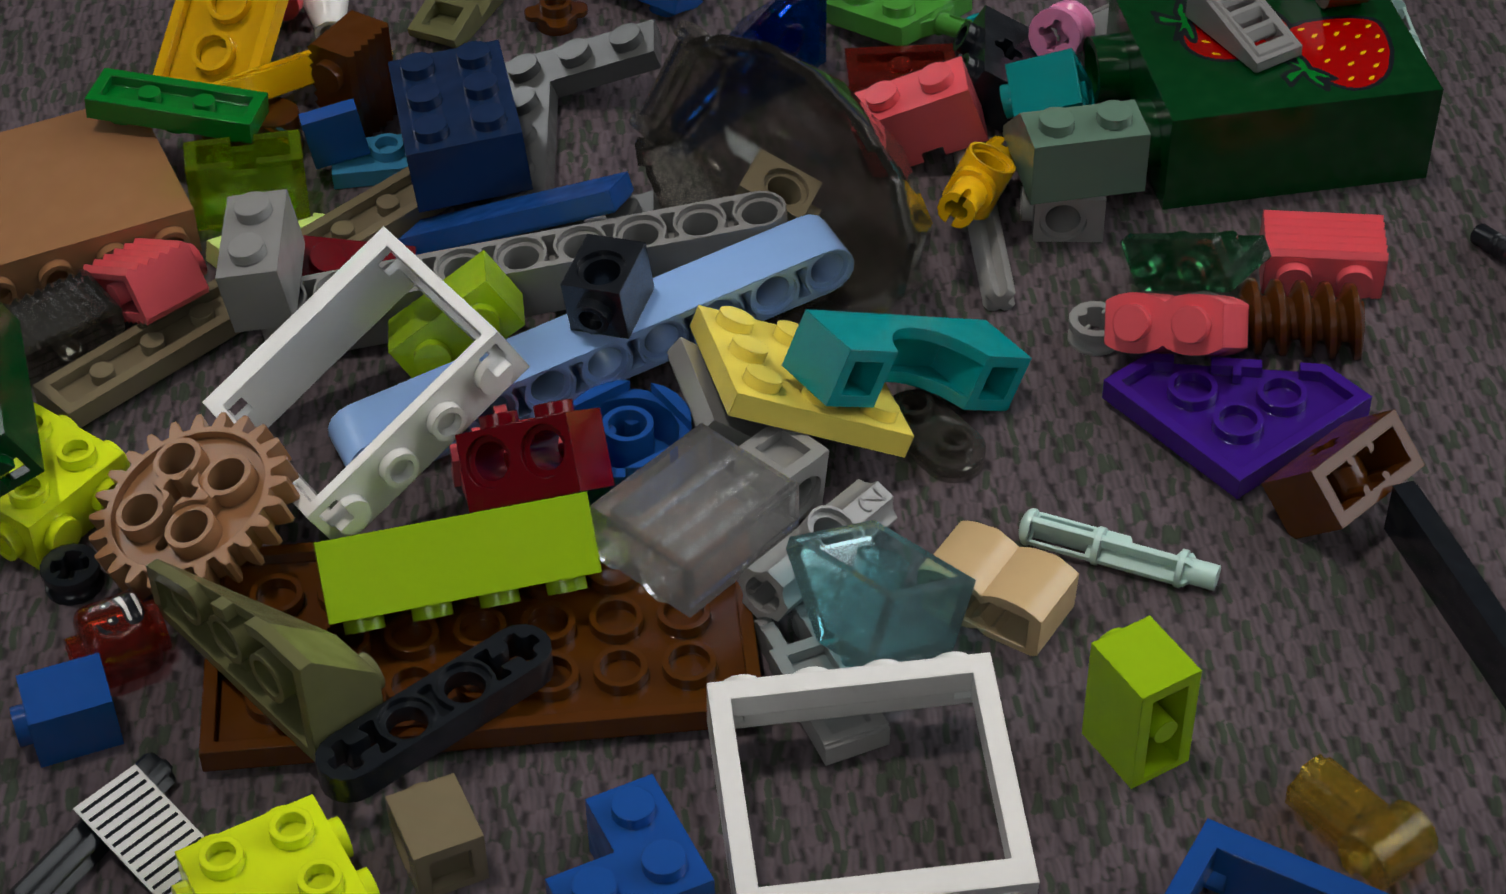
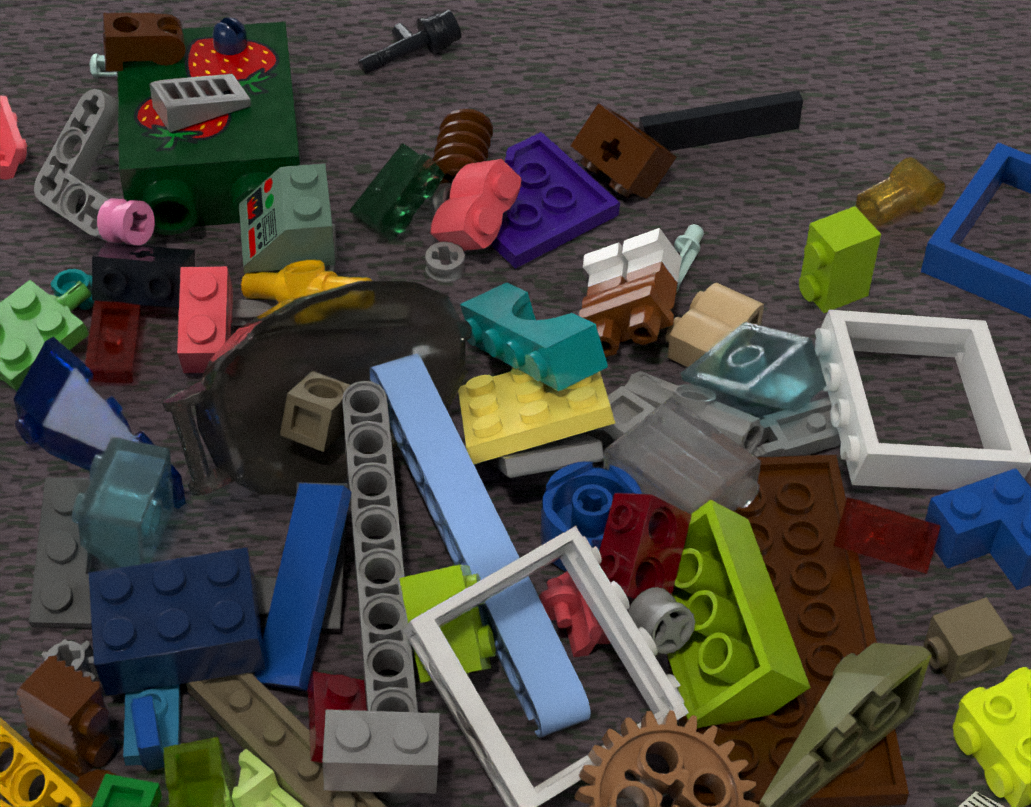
camera: 90 degrees left, 5 degrees up
(429, 704) = (874, 628): black beam -> none
(436, 485) = (663, 618): none -> light grey wheel
(599, 731) = (886, 535): none -> clear red plate
(604, 75) = (126, 503): none -> clear light blue slope
(607, 286) = (455, 475): black brick -> none
(1028, 479) = (631, 289): none -> dark orange hips
(1046, 82) = (217, 229): teal slope -> none
(1326, 249) = (384, 127): coral brick -> none
(1379, 37) = (229, 36): none -> dark blue hinge

